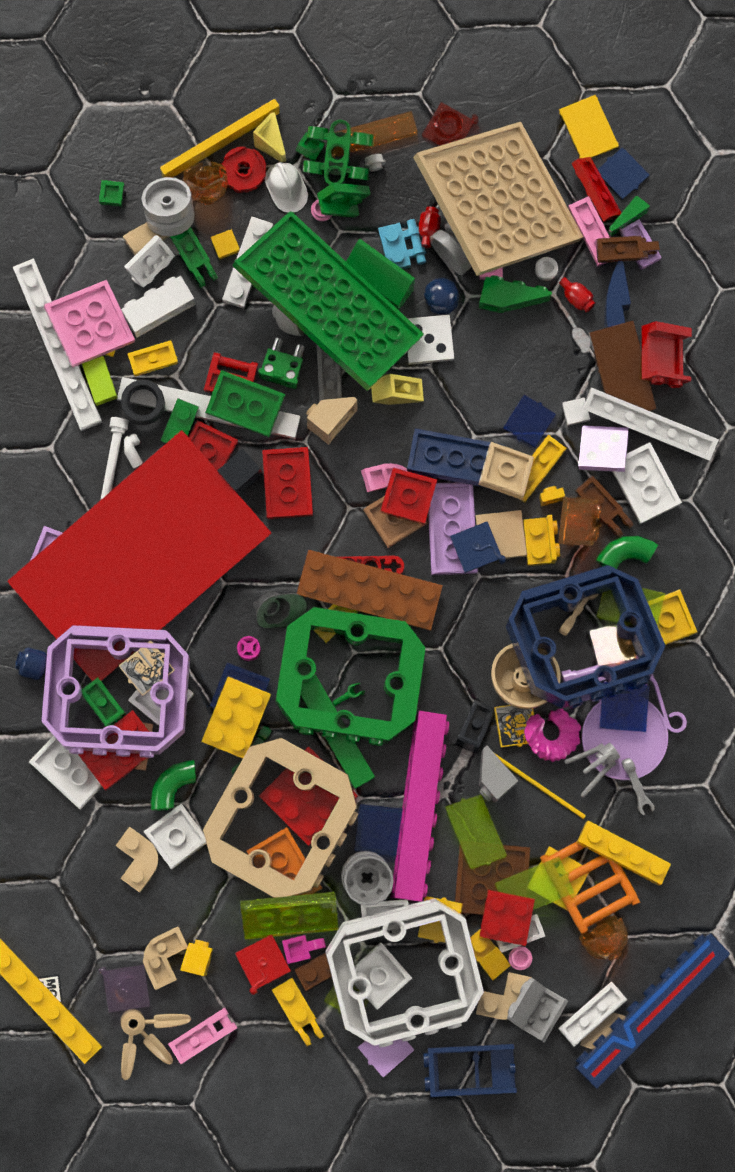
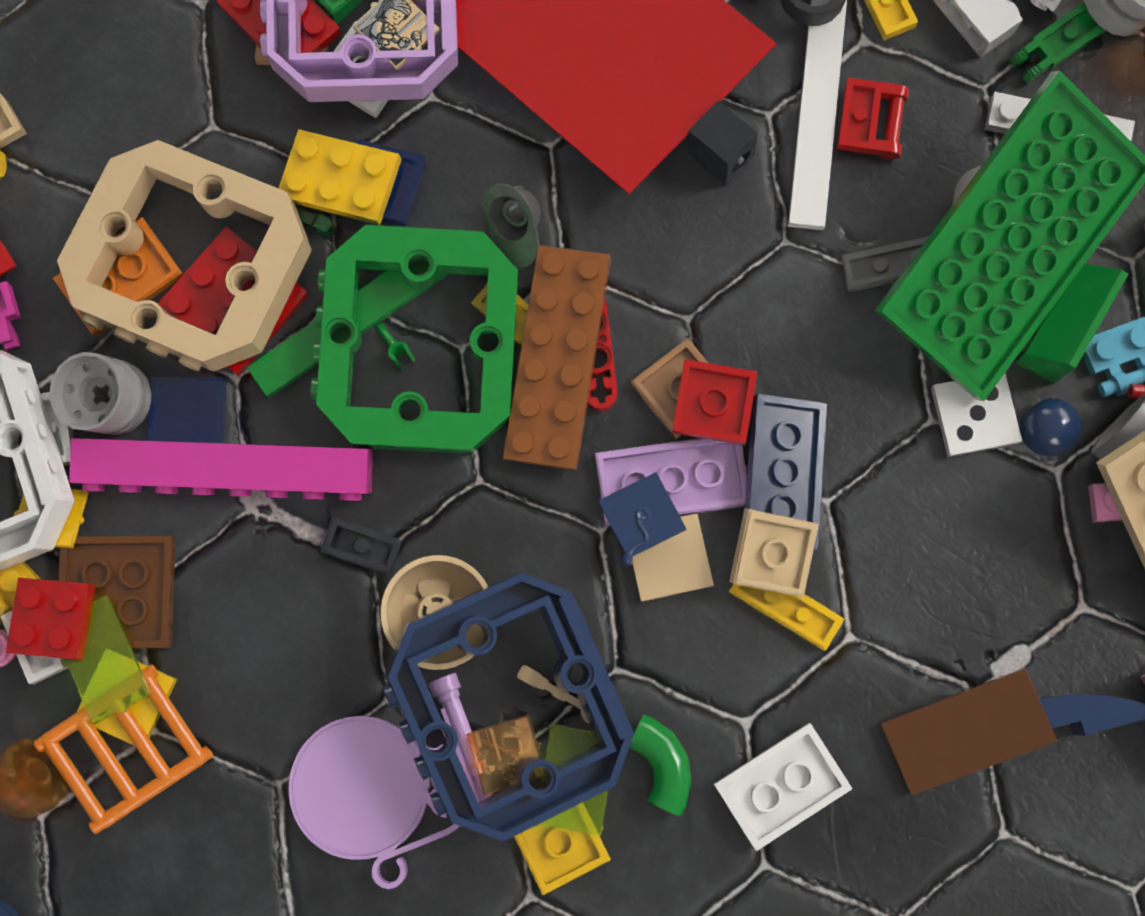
camera: 90 degrees right, 0 degrees up
(144, 857) = (120, 76): tan plate -> none
(169, 782) = (237, 95): green cylinder -> none
(176, 836) = (160, 112): white tile -> none
(180, 419) = (795, 51): green plate -> none
(213, 443) = (762, 99): red tile -> none
(225, 244) = (1089, 84): yellow tile -> none
(245, 403) = (832, 139): green tile -> none
(246, 645) = (448, 180): dark pink wheel -> none
(281, 370) = (899, 186): green piece -> none
(287, 483) = (715, 218): red plate -> none
(289, 915) = (40, 285): clear neon green tile -> none
(330, 417) = (827, 268): tan slope -> none
(378, 476) = (742, 352): bright pink plate -> none
(397, 390) = (886, 370): light yellow slope -> none
(475, 831) = (187, 559): clear neon green piece -> none
(494, 776) = (271, 578): light grey slope -> none
(506, 296) = (1066, 528): green slope -> none
(511, 725) = (358, 608): piece -> none
(529, 421) = (863, 587): clear blue piece -> none
(540, 541) = (667, 621): yellow bracket -> none
(542, 788) = (272, 654): yellow piece -> none
(546, 268) = (1123, 592): white tile -> none
(551, 495) = (743, 632): yellow plate -> none
(556, 749) = (326, 673): dark pink piece -> none
(574, 413) = (889, 661): white tile -> none
(578, 295) = (1086, 647): red plant -> none
(579, 521) = (702, 677): clear orange slope -> none
(603, 448) = (831, 711): tile -> none
(606, 756) = (319, 758): light grey plant -> none
(609, 507) = (738, 718): reddish brown hinge -> none
(623, 853) = (168, 801): yellow plate -> none
(625, 710) = (395, 785): clear blue plate -> none
(642, 799) = (260, 824): light grey piece -> none
(650, 424) = (883, 787): white plate -> none
(664, 353) = (1007, 800): red panel -> none

